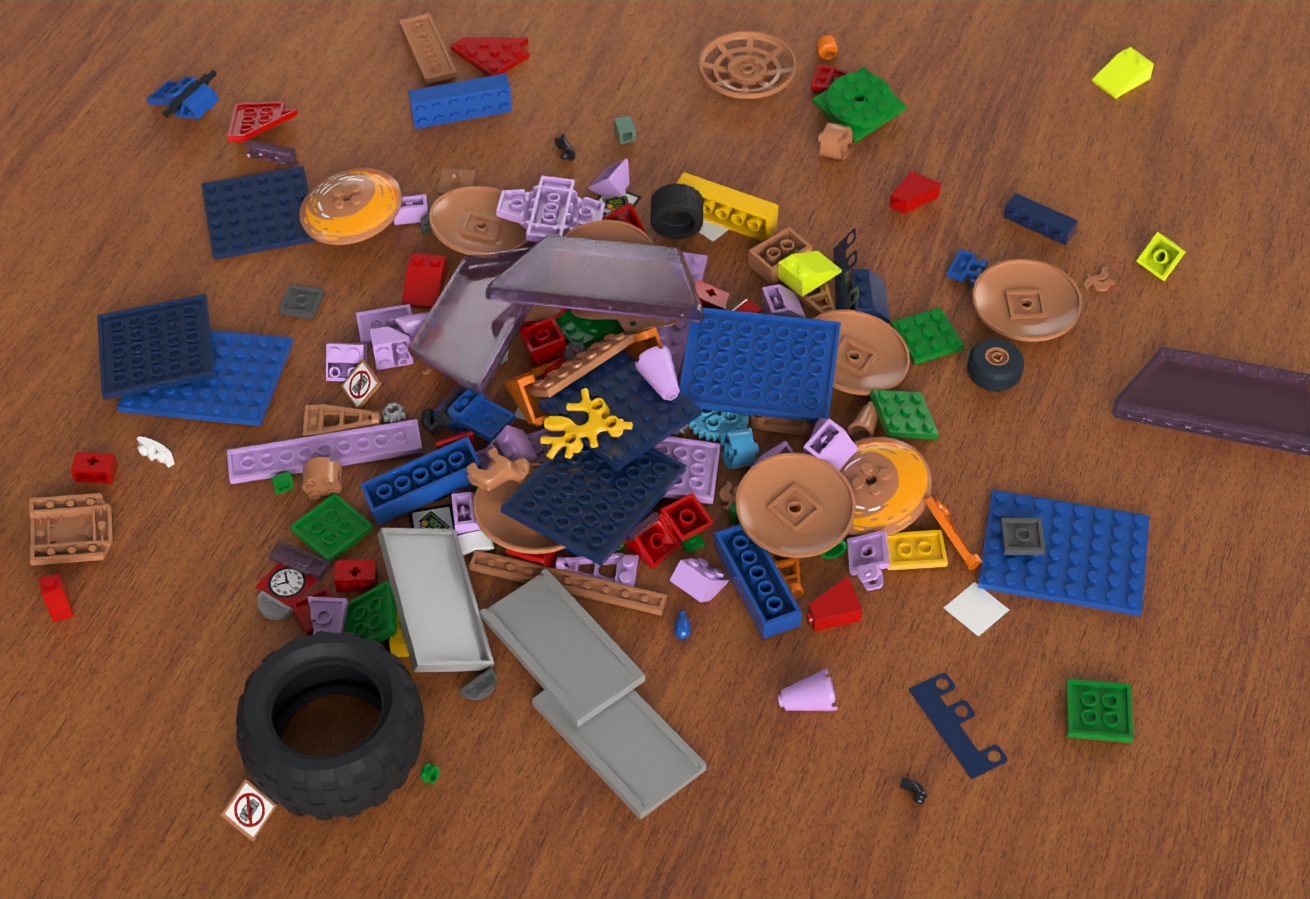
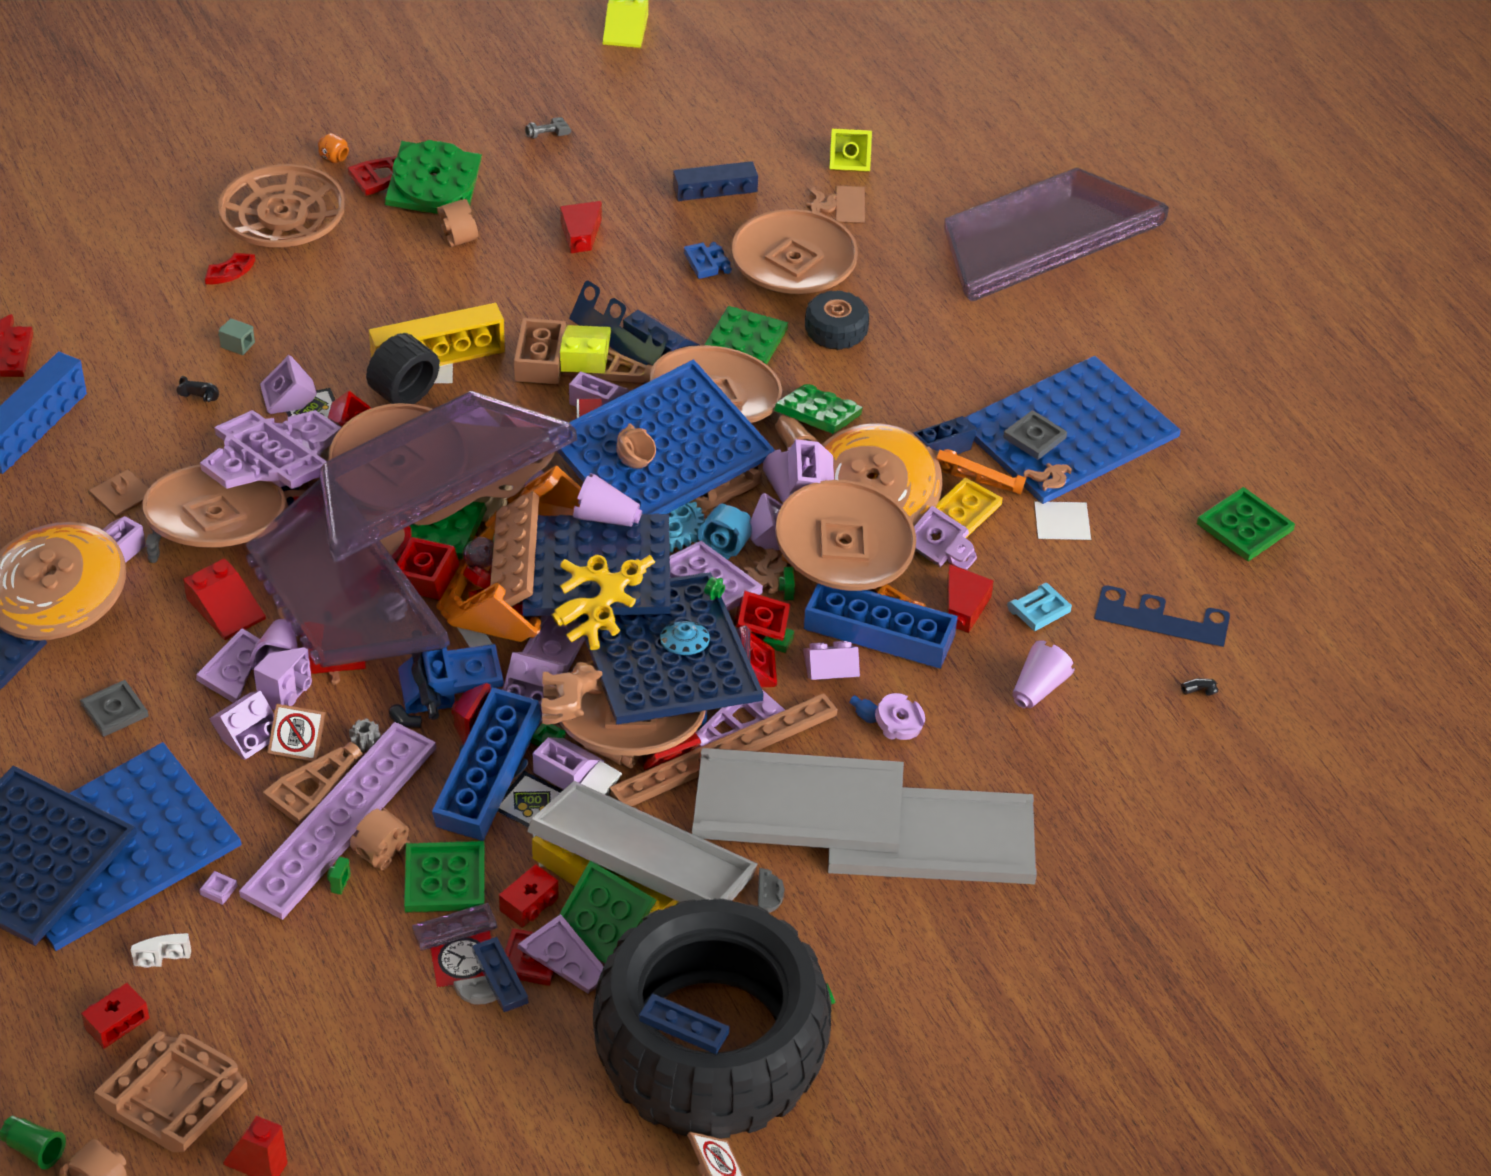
camera: 50 degrees left, 5 degrees down
(225, 441) = (218, 887): none -> lavender tile
(271, 708) = (684, 1023): none -> dark blue plate
(281, 606) = (500, 974): none -> dark blue plate
(609, 492) = (684, 638): none -> dark azure dish
(667, 475) = (714, 588): none -> green plate
(676, 87) = (231, 269): none -> red tile
(680, 651) = (892, 725): none -> lavender plate
(729, 352) = (635, 447): none -> nougat hair
(878, 656) = (1043, 611): none -> medium azure plate
(958, 493) = (952, 435): none -> dark blue slope
(987, 119) = (557, 125): none -> dark grey hinge
(1003, 577) = (1057, 473): none -> nougat piece
(1119, 295) = (850, 204): none -> nougat sticker

